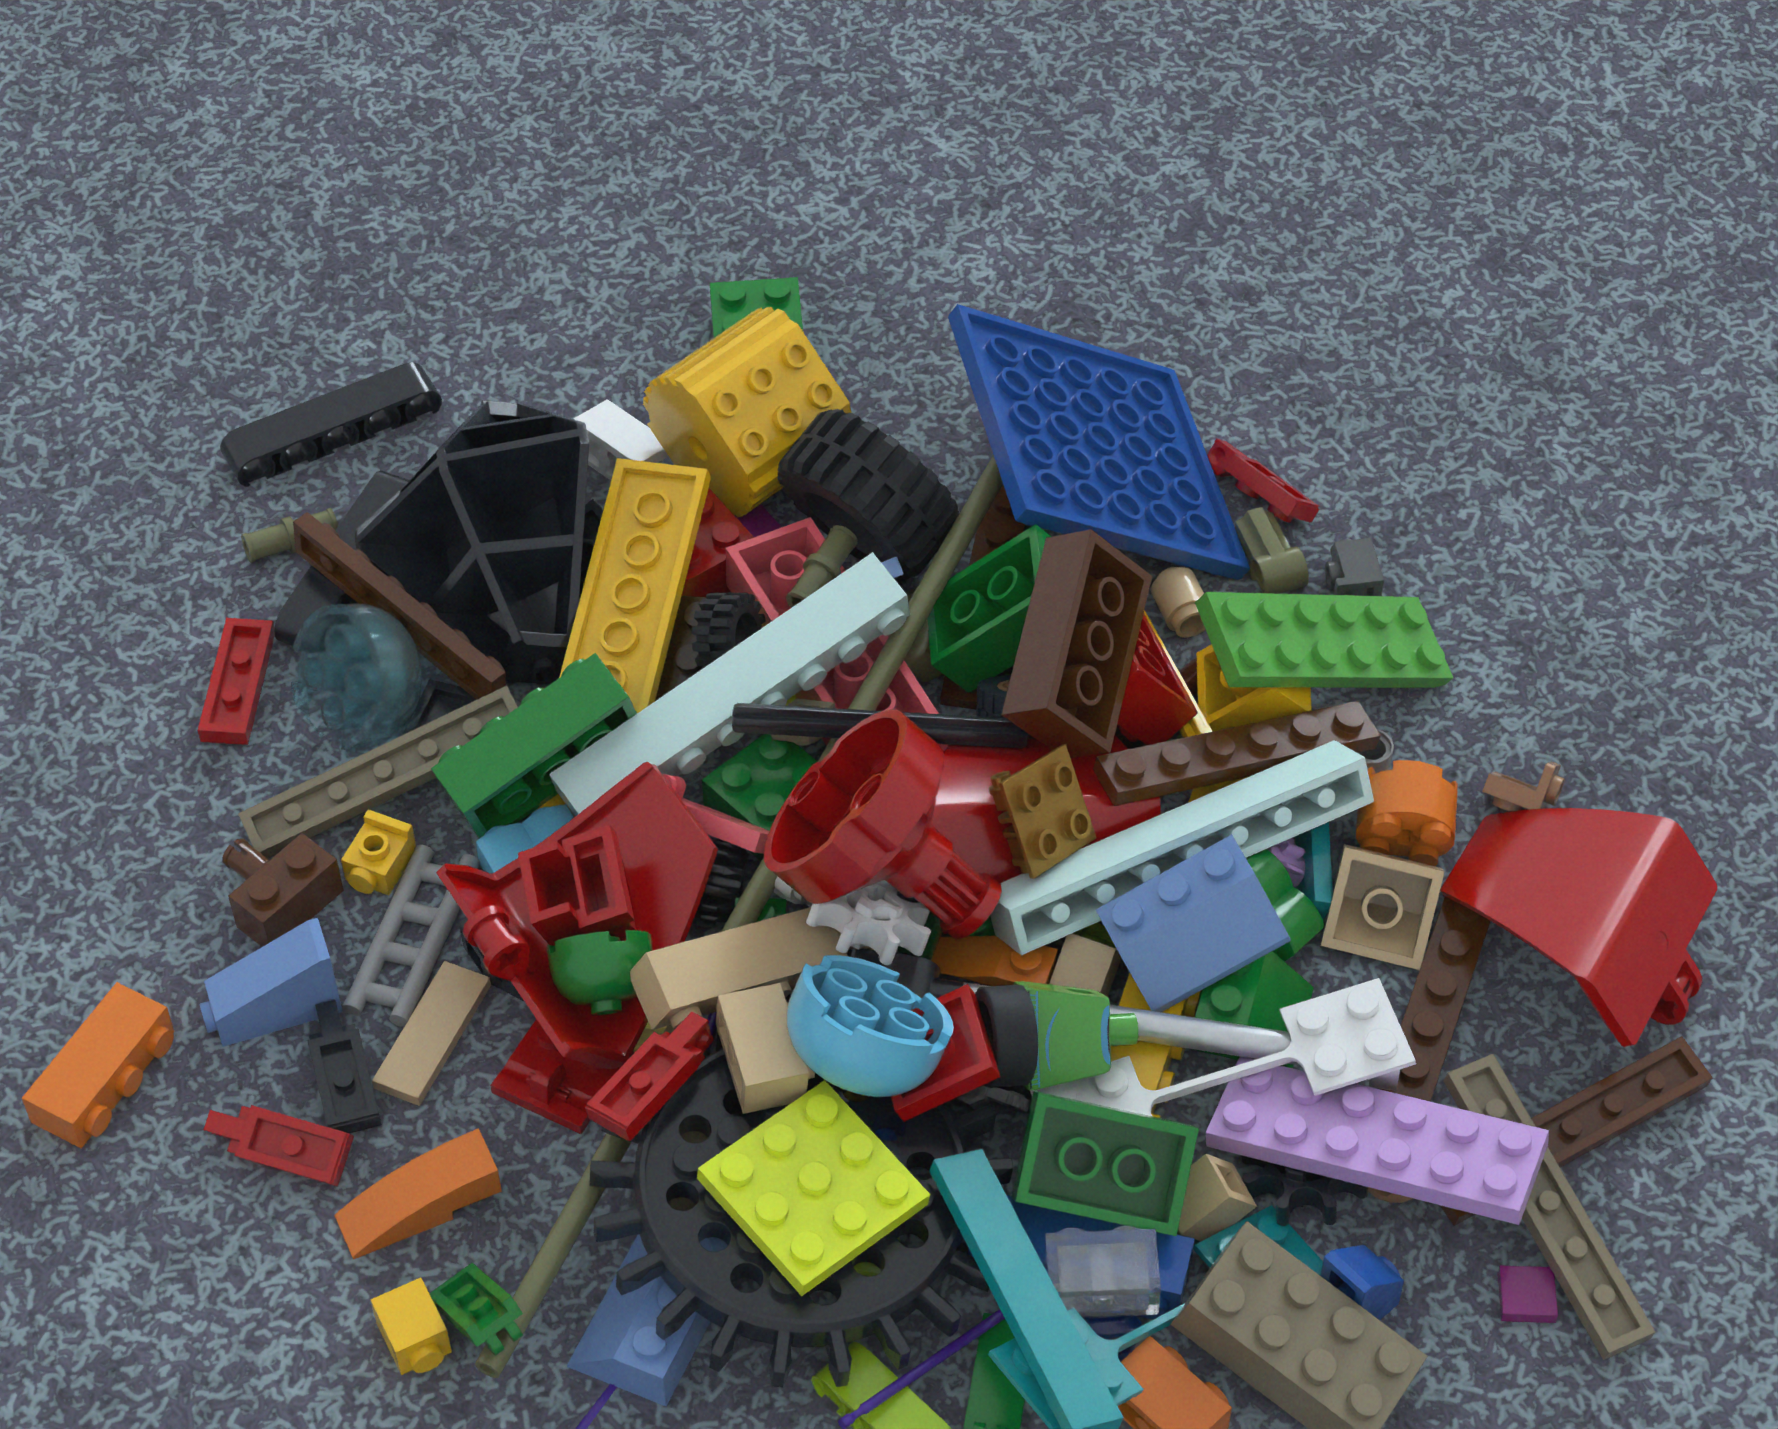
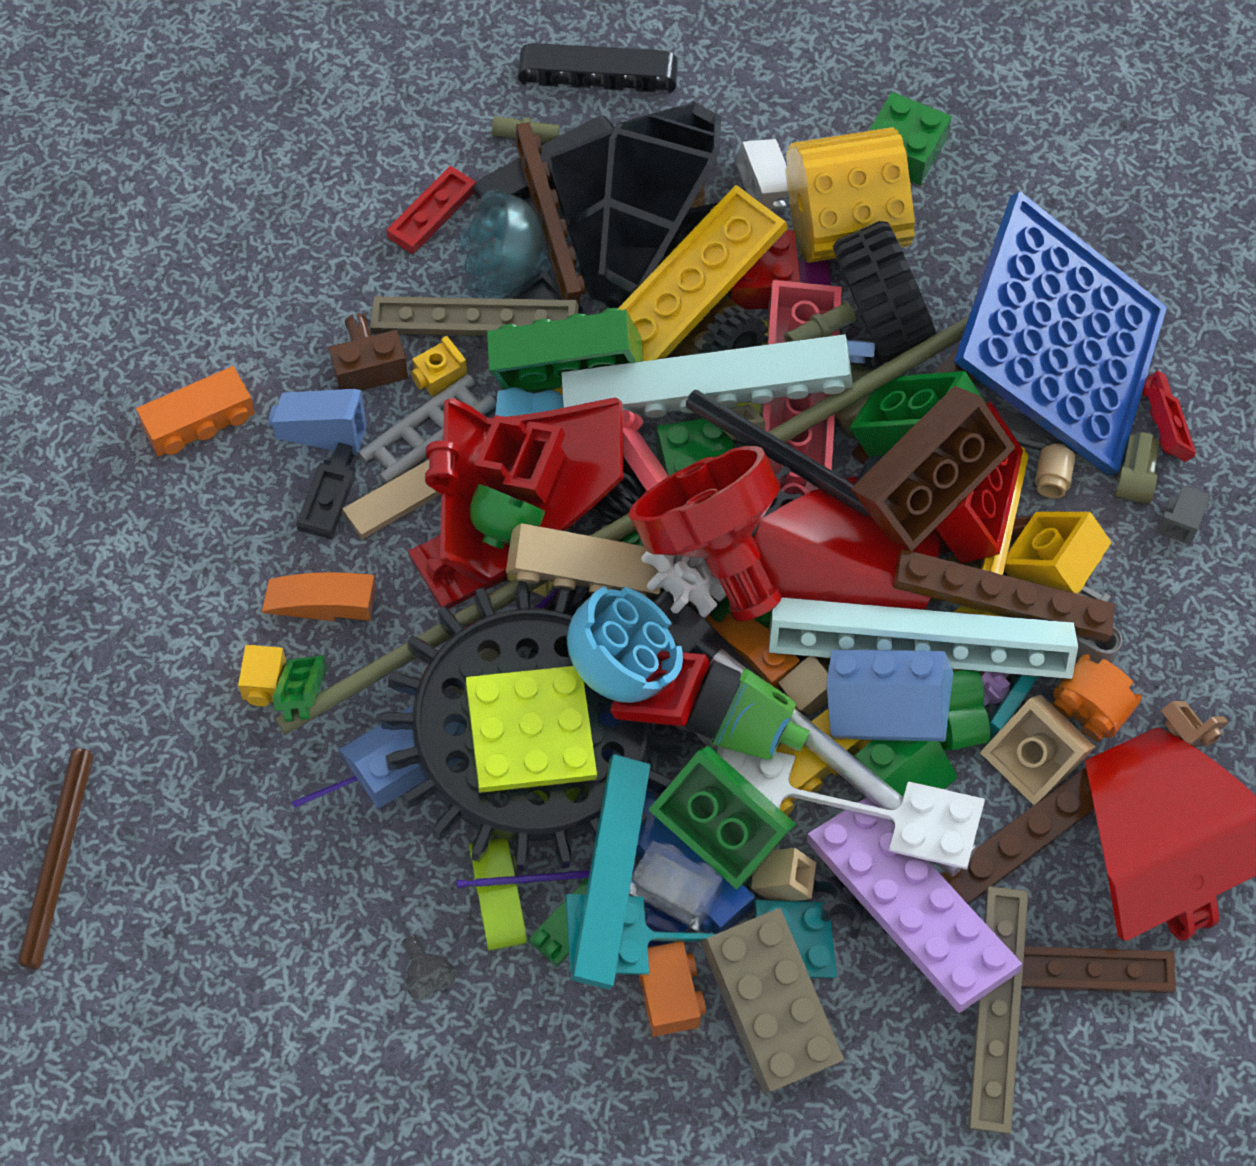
camera: 30 degrees right, 10 degrees up
(284, 1142) = (266, 519): red hinge -> none
(650, 1077) = (478, 603): red hinge -> none
(759, 1048) = (549, 624): tan brick -> none
(1044, 812) = (839, 567): pearl gold hinge -> none
(1323, 641) = (1116, 551): bright green plate -> none
(1364, 1278) = (840, 987): blue slope -> none
(1527, 1294) = (949, 1057): magenta tile -> none

